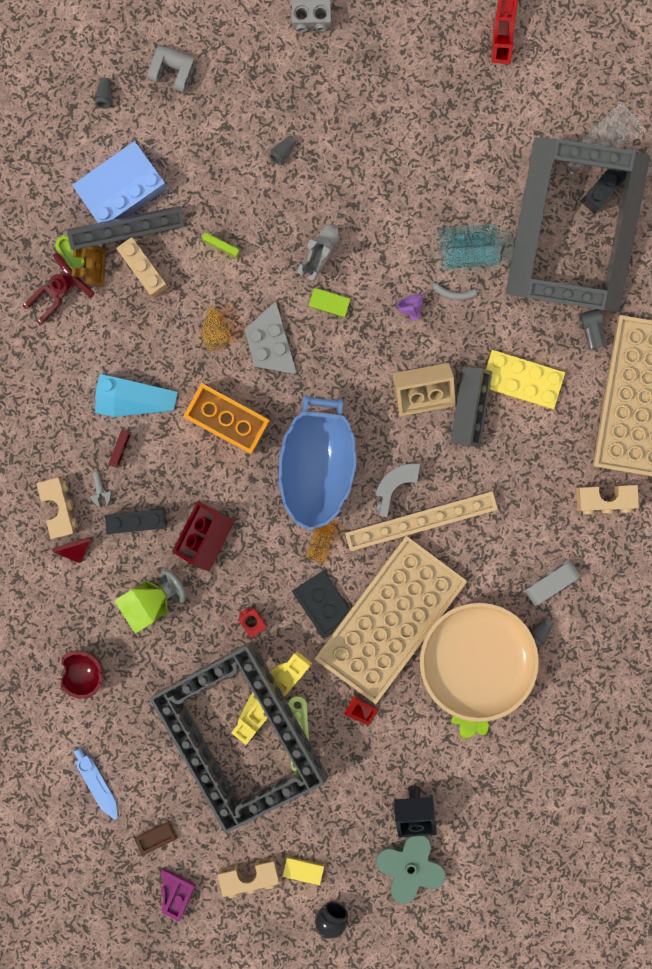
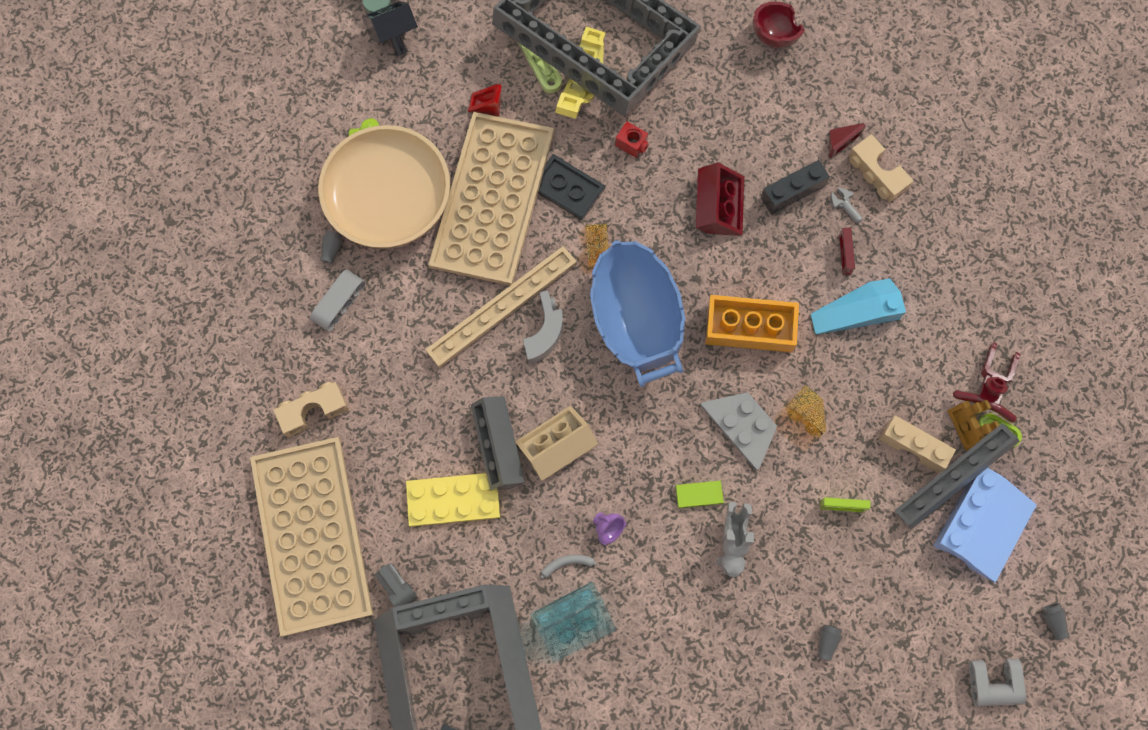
camera: 155 degrees right, 15 degrees down
(149, 602) = (746, 111): lime piece -> none

